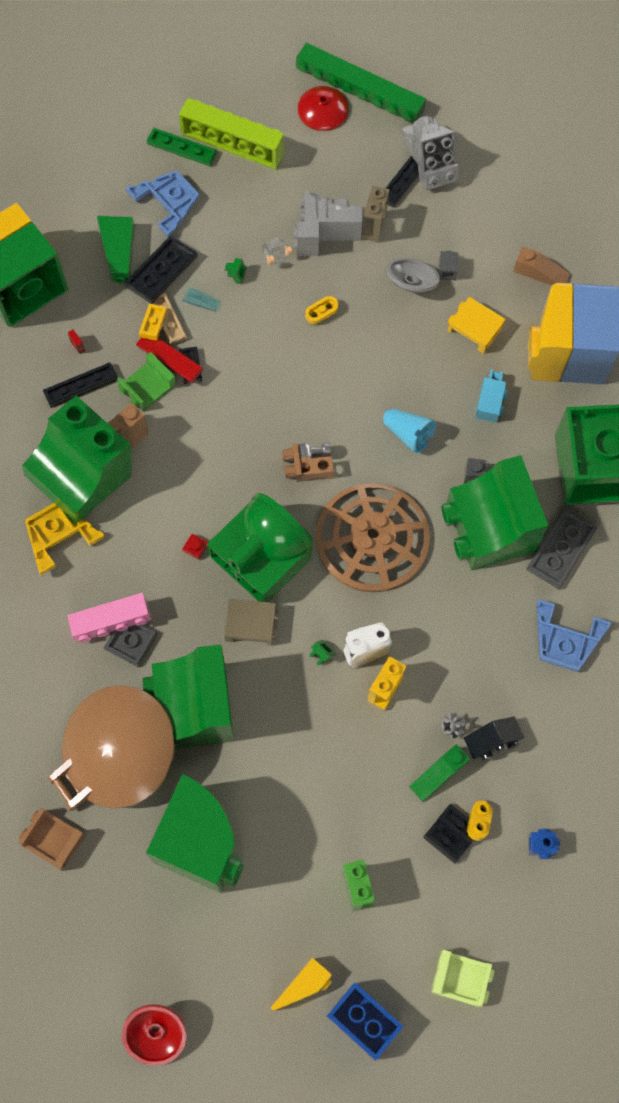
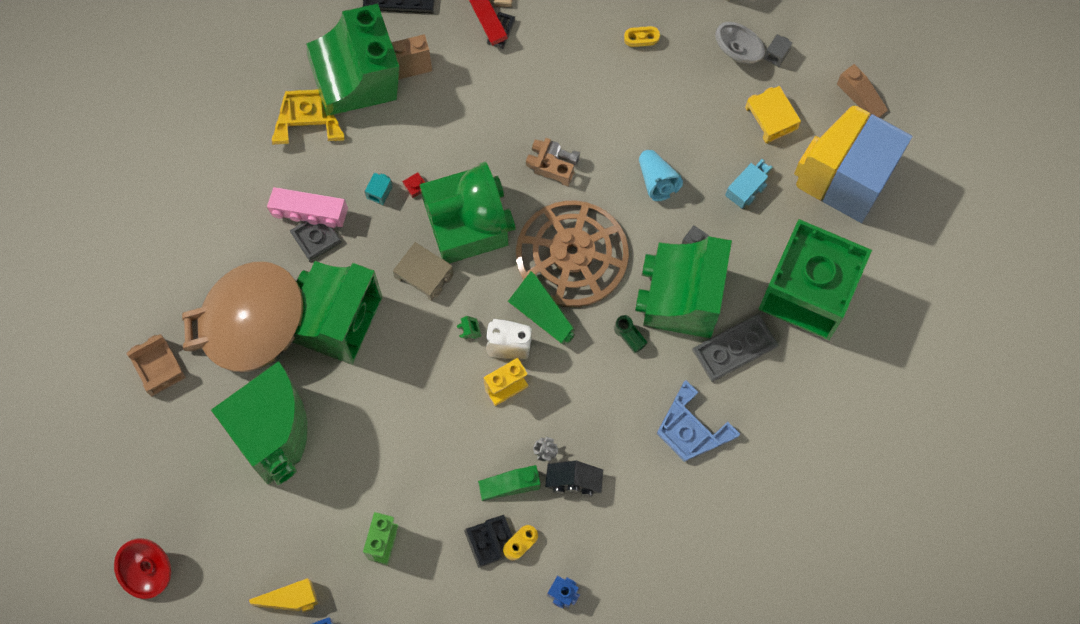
camera: 30 degrees right, 0 degrees up
(147, 383) = (454, 28): bright green panel -> none
(165, 566) = (378, 188): none -> teal brick
(375, 600) = (540, 307): none -> green slope
(468, 583) = (631, 335): none -> dark green piece

